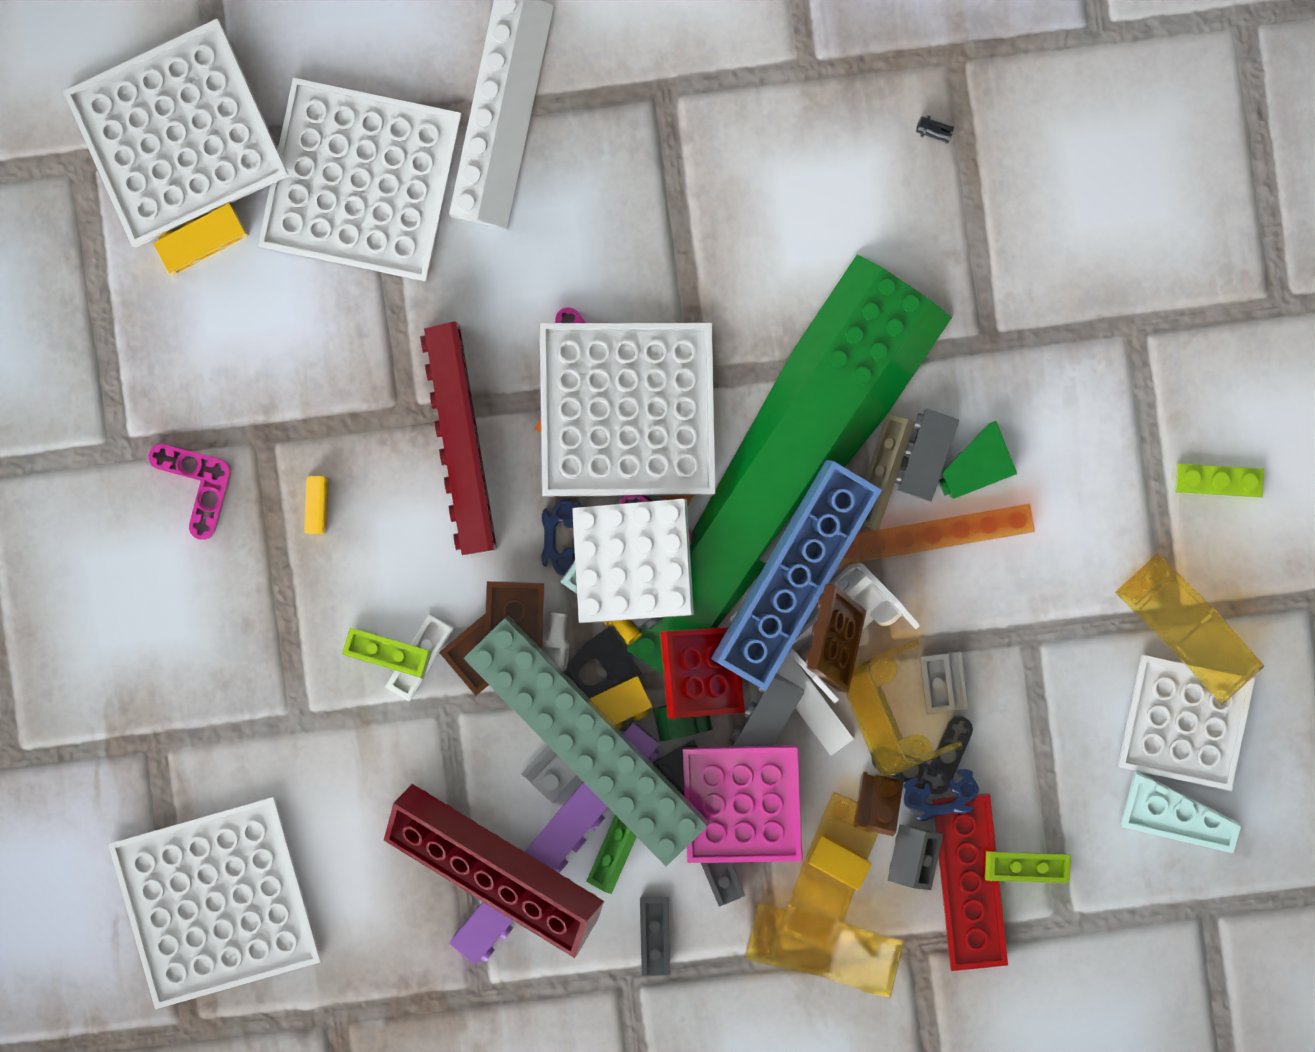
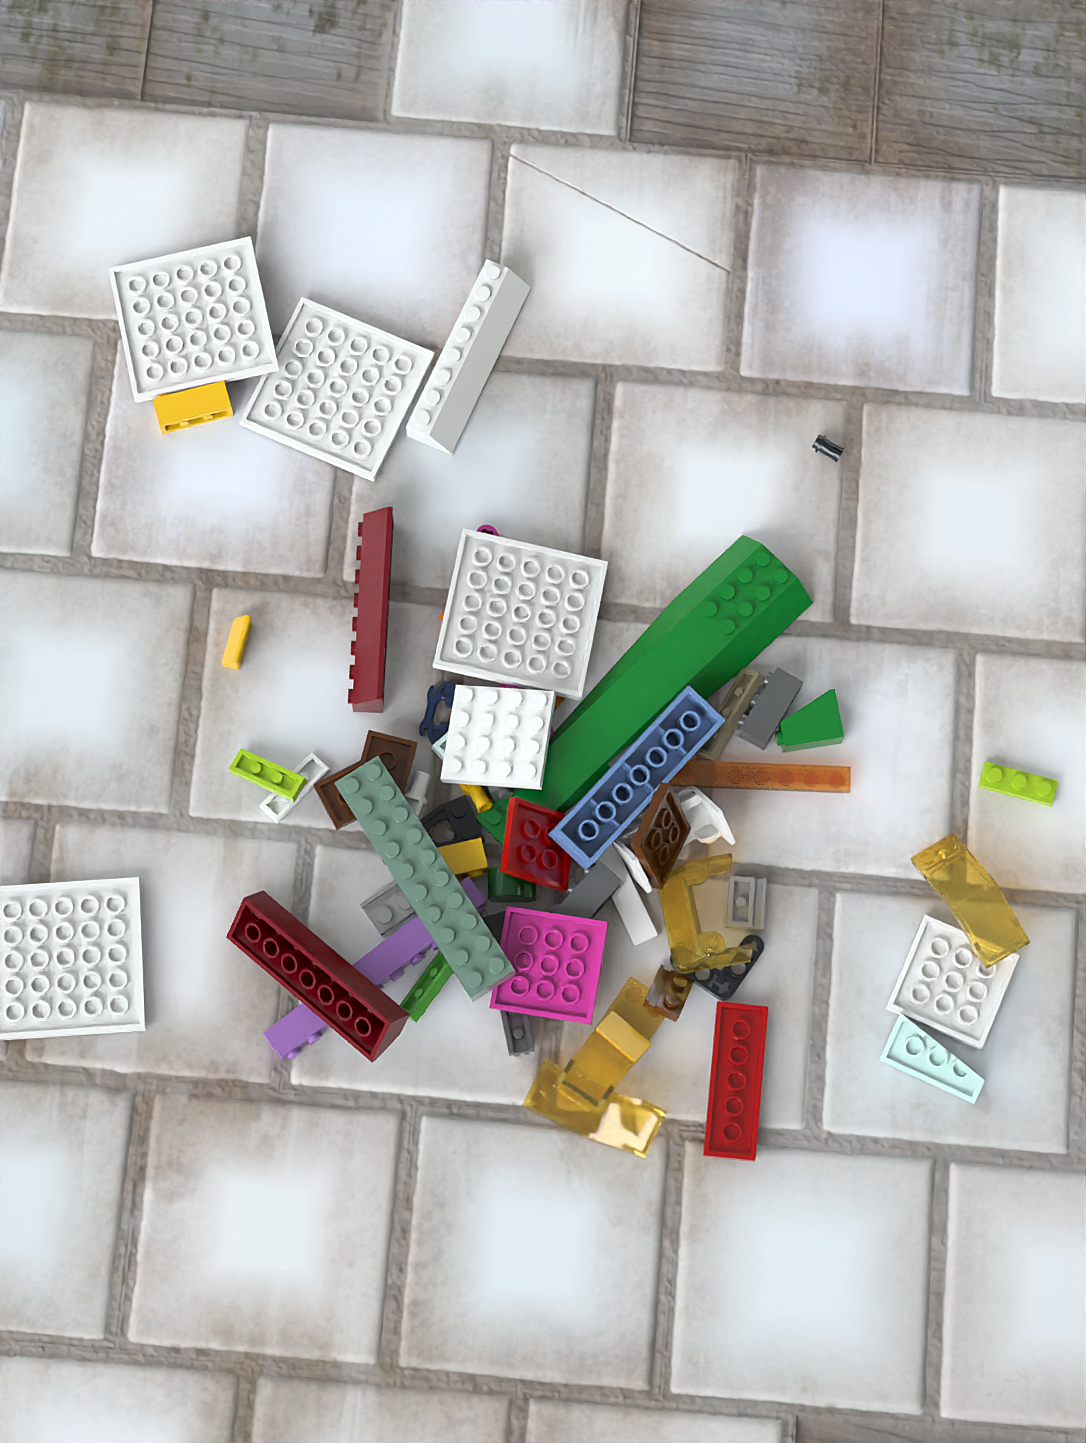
camera: 10 degrees right, 15 degrees down
(207, 484) = (148, 604): dark pink beam -> none
(655, 936) = (446, 1070): dark grey hinge -> none
(915, 857) = (691, 1046): dark grey brick -> none
(965, 789) = (747, 997): dark blue helmet -> none
(1027, 867) = (789, 1076): lime plate -> none

